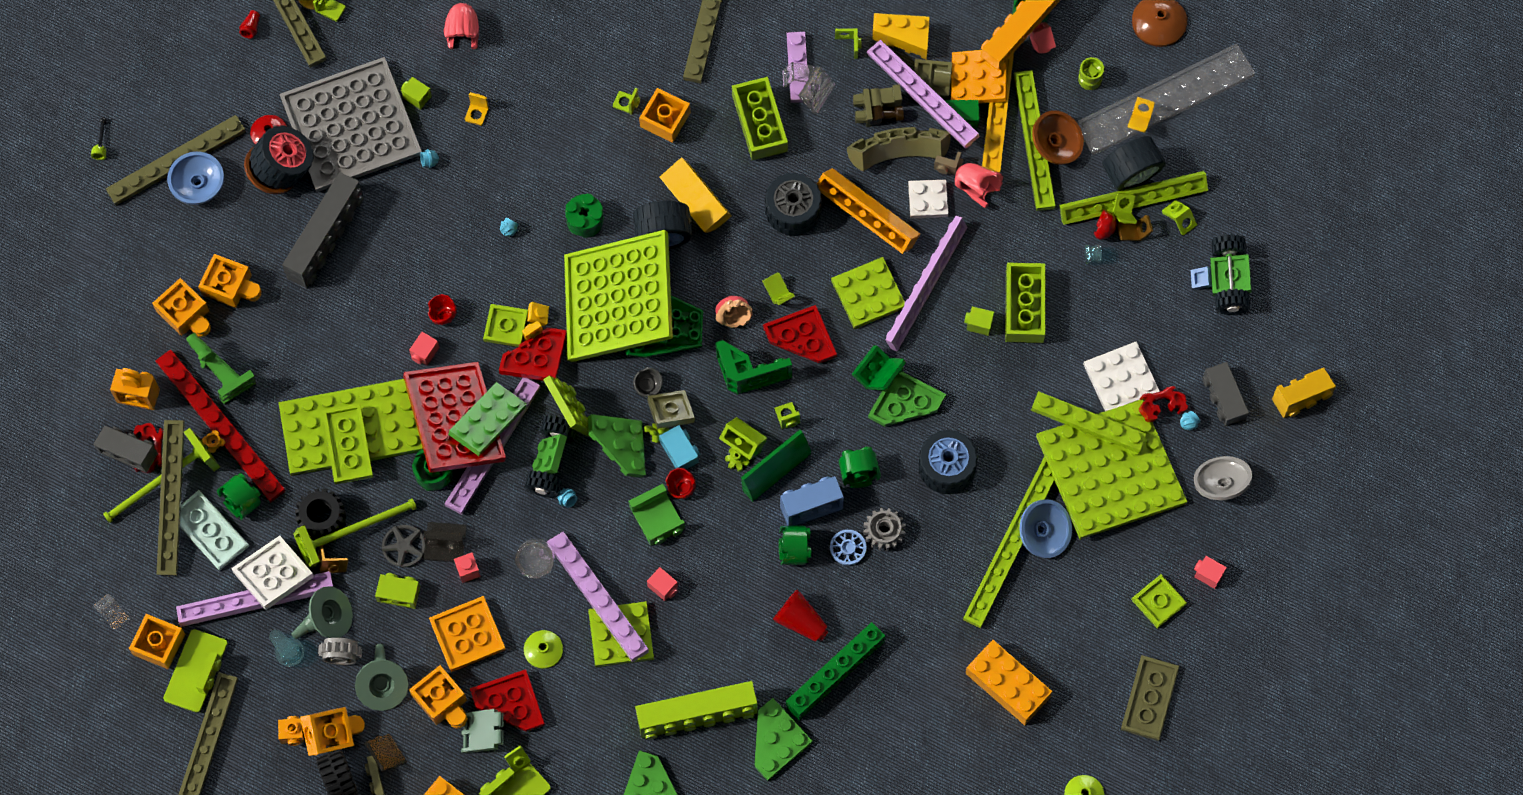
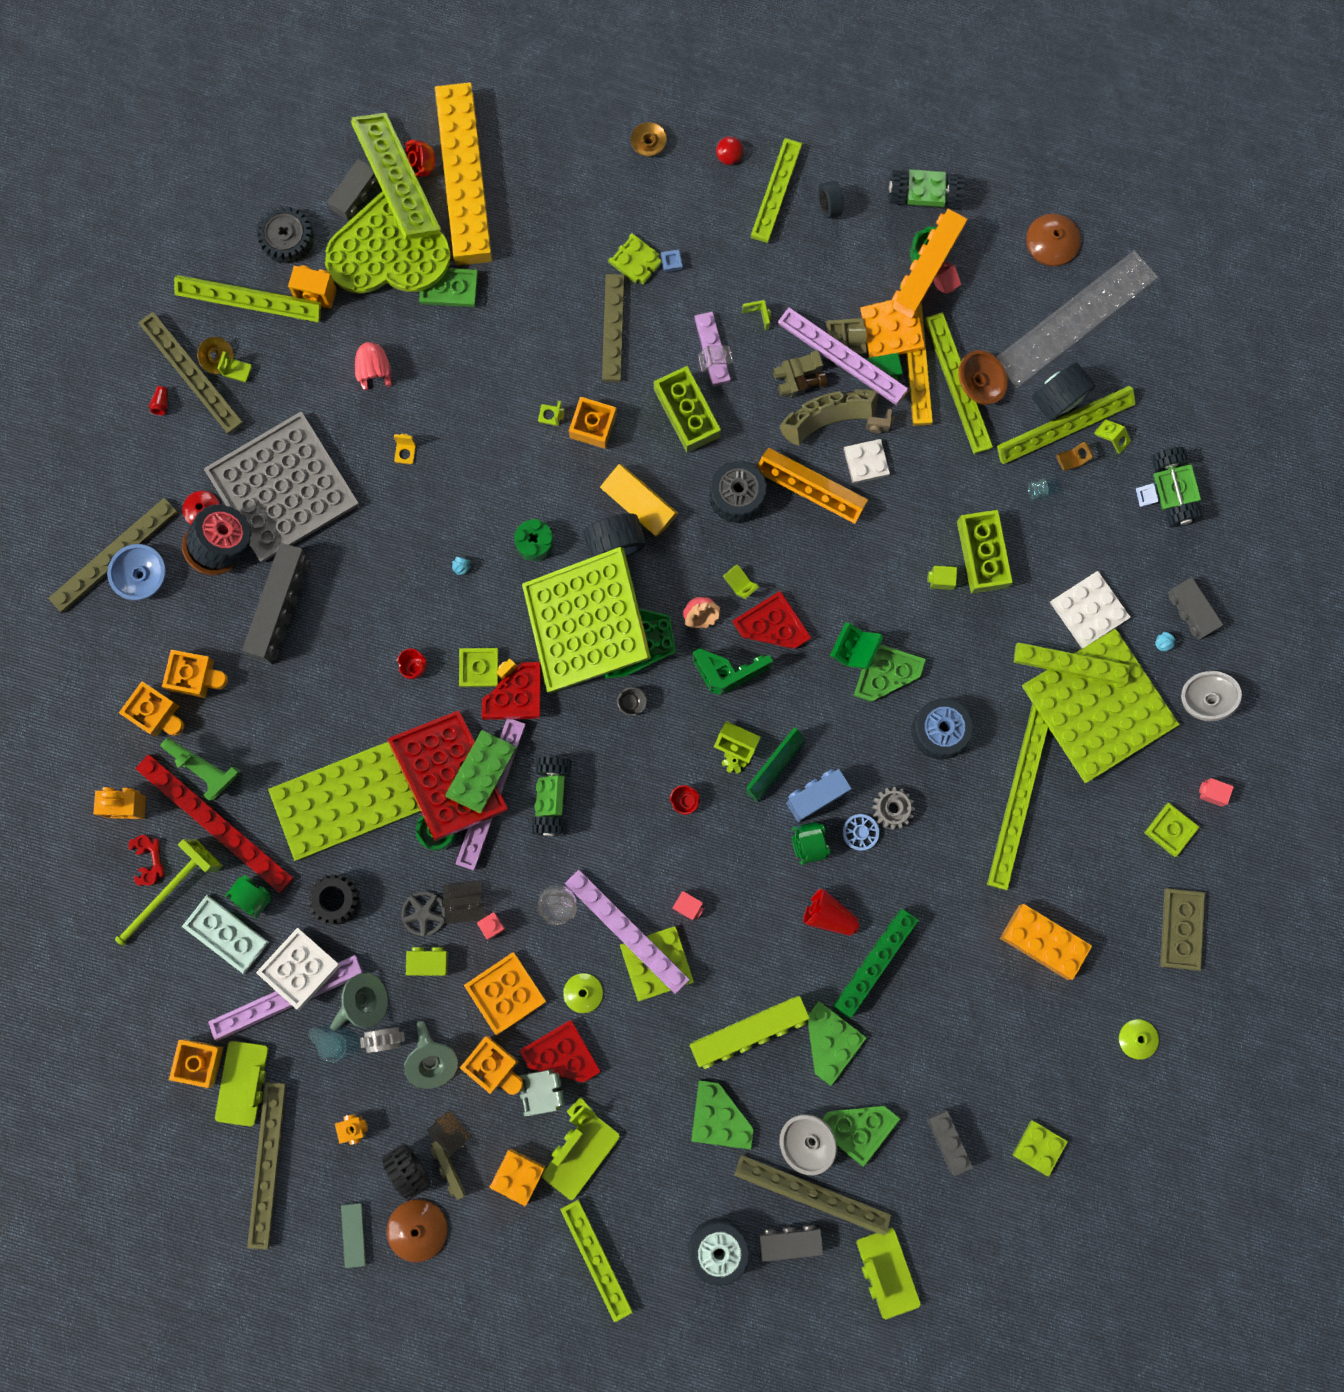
camera: 15 degrees left, 10 degrees up
(99, 151) = (33, 560): hinge -> none
(111, 612) = (143, 1038): clear bracket -> none
(126, 448) = (124, 867): dark grey brick -> none
(170, 497) = (179, 912): olive plate -> none
(214, 435) = (205, 843): light orange plate -> none
(308, 546) = (329, 936): lime tile -> none
(331, 730) = (389, 1124): light orange brick -> none
(332, 565) = (354, 950): pearl gold bracket -> none
(347, 444) = (346, 822): lime plate -> none
(415, 92) = (340, 443): lime brick -> none
(424, 349) = (402, 707): coral brick -> none
(429, 158) = (367, 508): medium azure plate -> none
(538, 313) = (508, 649): yellow plate -> none
(567, 497) = (575, 834): medium azure plate -> none
(568, 404) = (560, 743): lime plate -> none
(620, 442) = (617, 768): bright green plate -> none
(655, 432) = (649, 749): lime plant -> none
(656, 515) = (668, 836): bright green panel -> none
(671, 409) = (660, 725): olive plate -> none
(679, 448) = (676, 763): medium azure brick -> none
(789, 420) = (777, 715): lime bracket -> none
(816, 90) = (736, 369): clear plate -> none
(859, 467) = (857, 751): green brick -> none
(868, 292) = (828, 568): lime plate -> none
(902, 32) = (809, 295): yellow wedge -> none
(926, 283) = (884, 541): lavender plate -> none
(978, 181) = (912, 436): coral hair -> none
(1054, 528) = (1051, 779): medium blue dish -> none
(1091, 73) = (1000, 305): lime wheel -> none
(1106, 225) = (1046, 458): red hair -> none
(1124, 214) = (1060, 443): lime bracket -> none
(1140, 119) = (1059, 344): yellow bracket -> none
(1147, 408) = (1124, 638): red helmet -> none
(1303, 393) = (1269, 594): yellow wedge -> none

